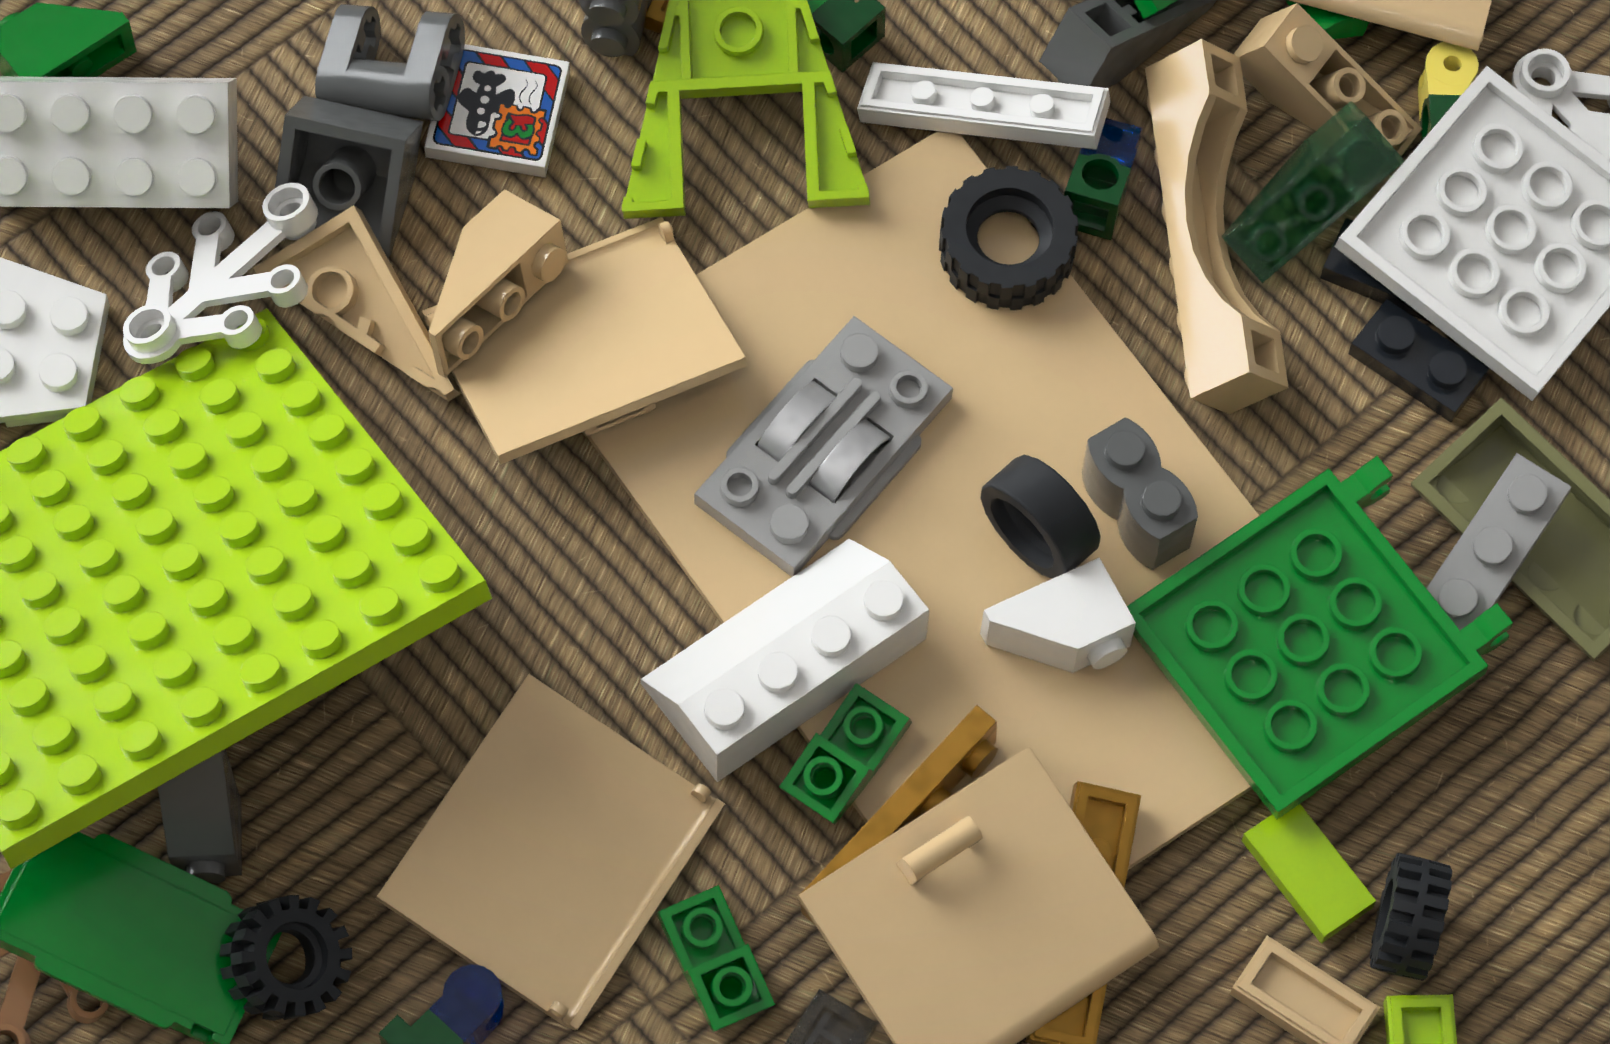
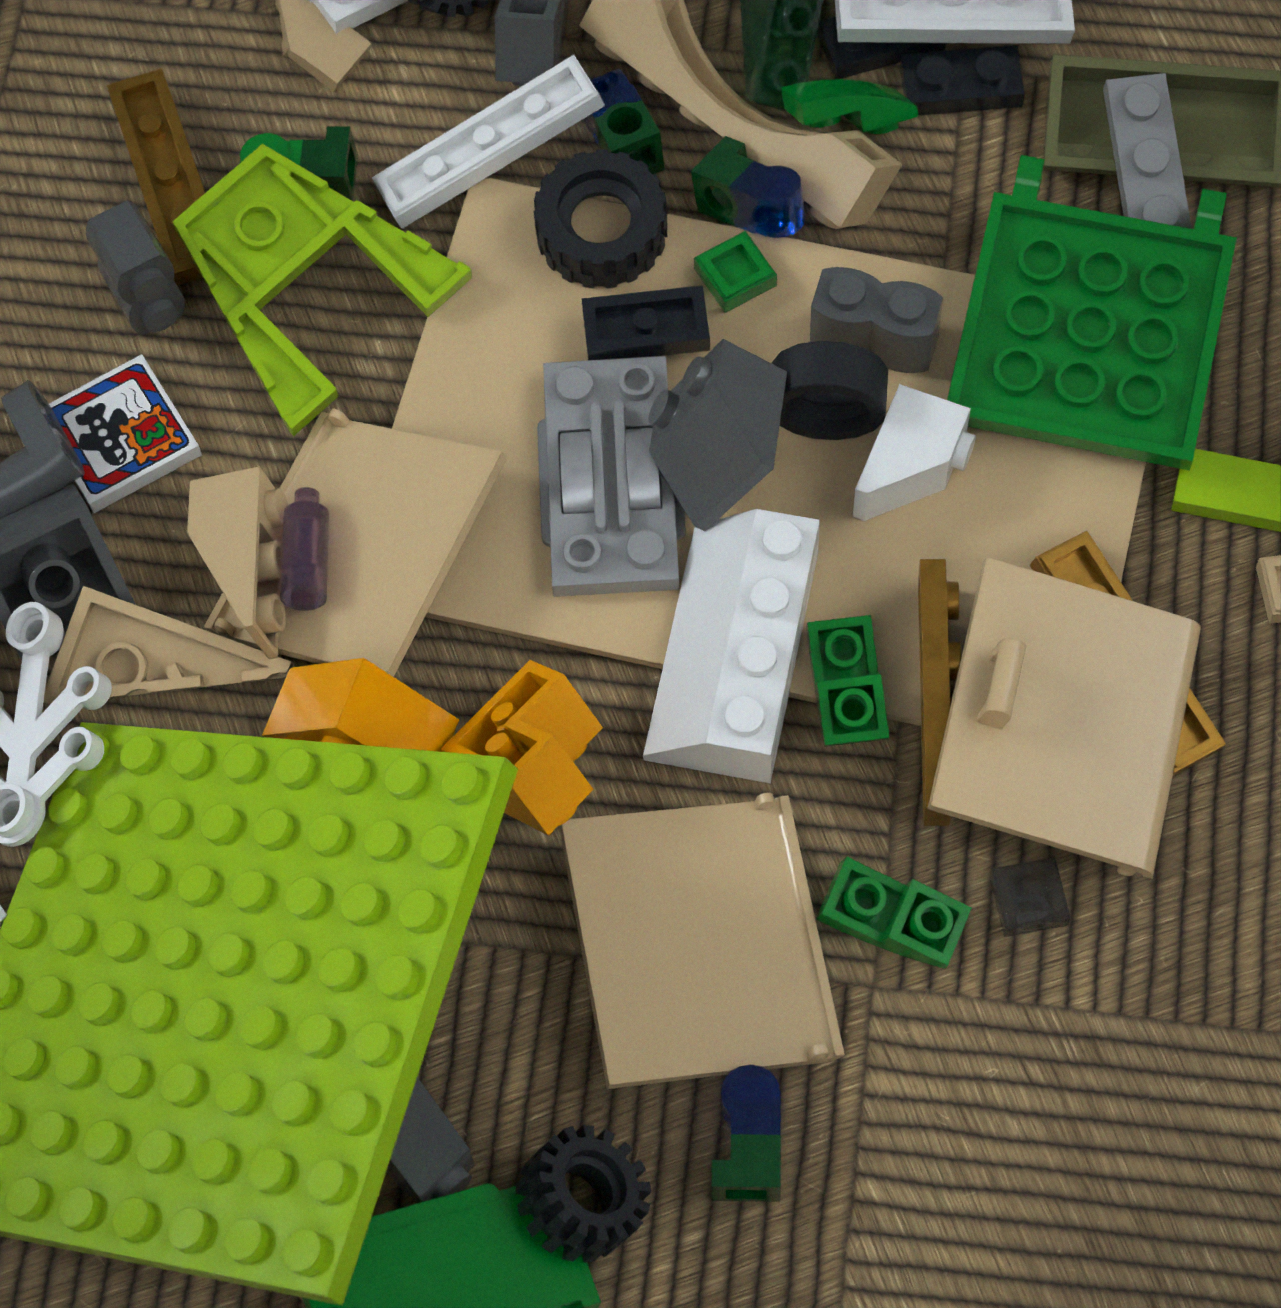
camera: 35 degrees left, 0 degrees up
(456, 476) = (357, 706): none -> light orange brick
(536, 313) = (305, 552): none -> cylinder
(557, 594) = (541, 730): none -> light orange brick
(919, 474) = (718, 430): none -> dark grey slope
(961, 350) = (646, 324): none -> black plate
(1076, 366) = (735, 271): none -> green tile
(1143, 311) = (748, 192): none -> leg
(1319, 318) = (865, 104): none -> green slope

